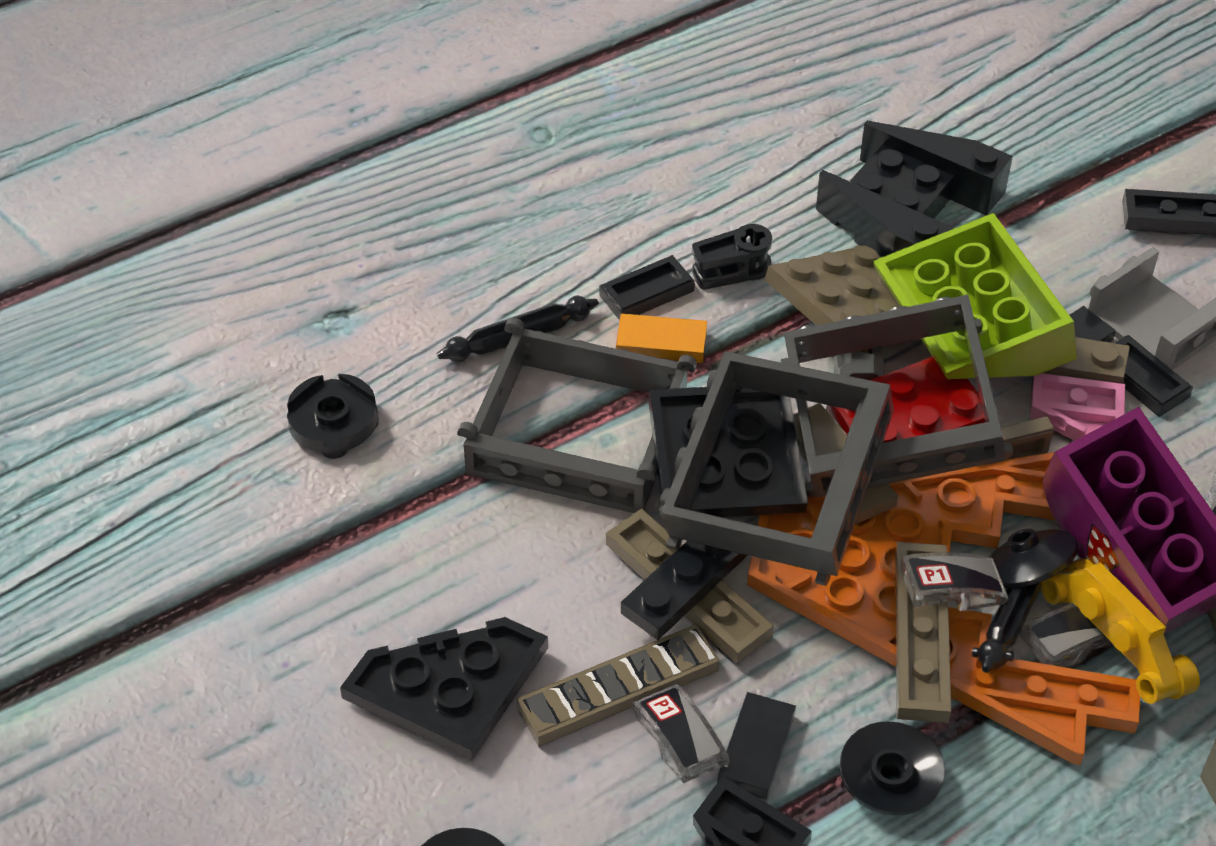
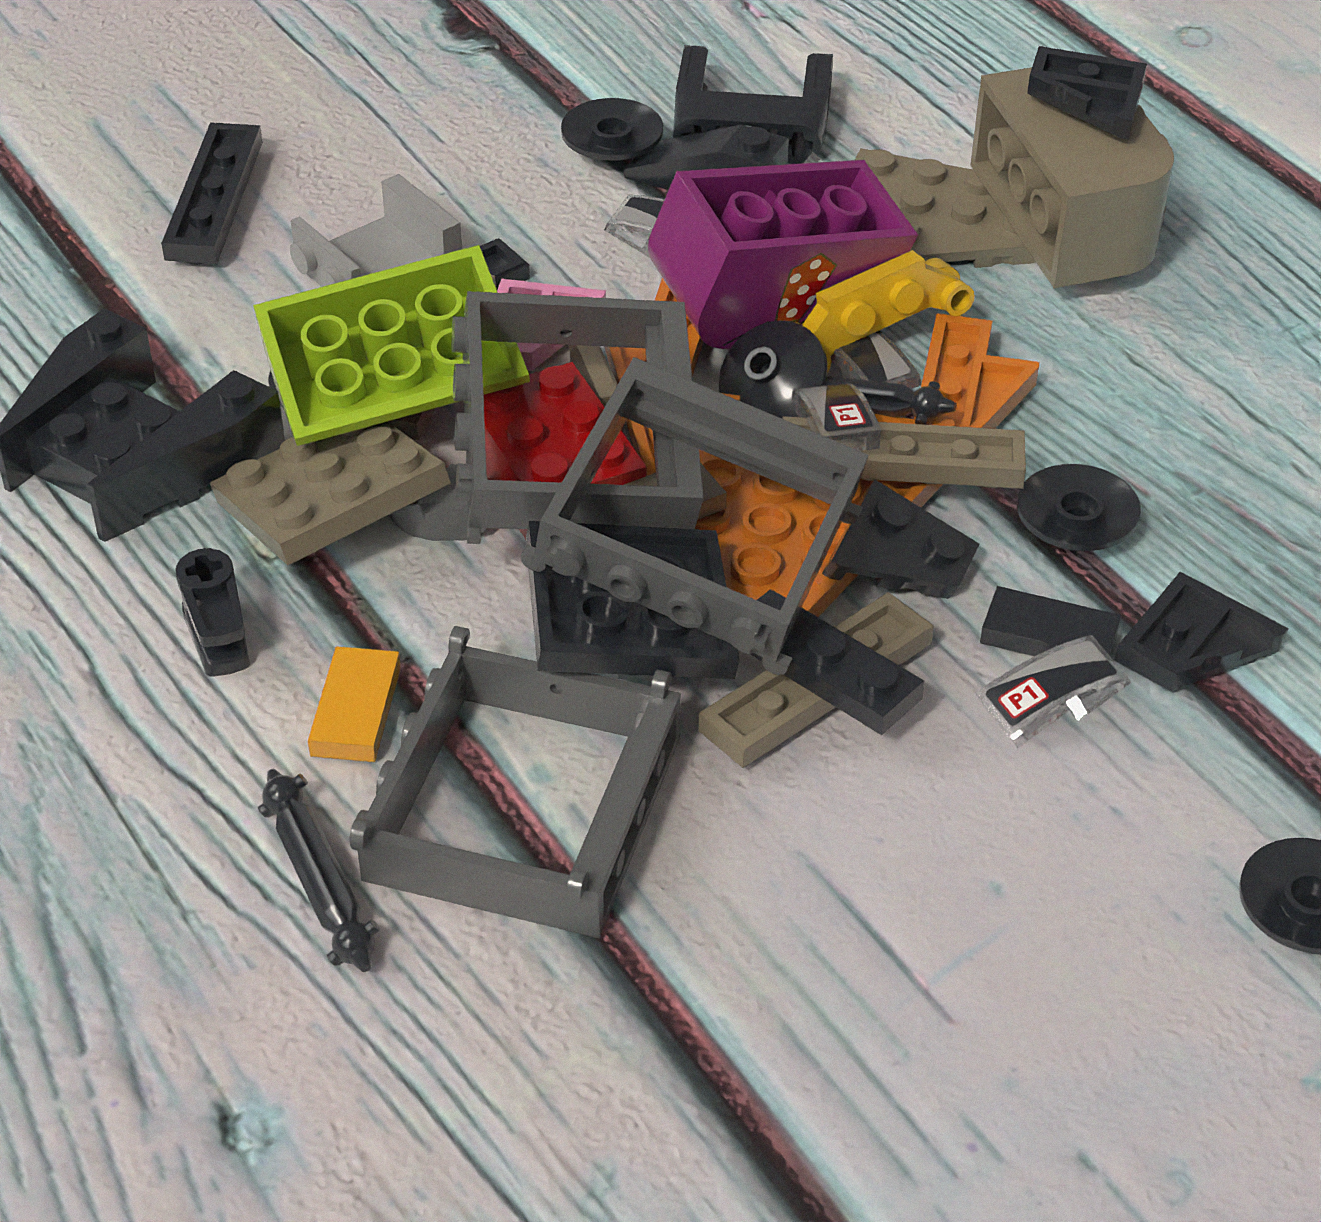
camera: 90 degrees left, 5 degrees down
(332, 434) = (485, 1141): black plate -> none
(449, 682) = (1002, 927): black plate -> none
(616, 684) = (987, 765): tile -> none
(647, 287) = (246, 720): black tile -> none
(825, 635) = (902, 546): none -> black wing

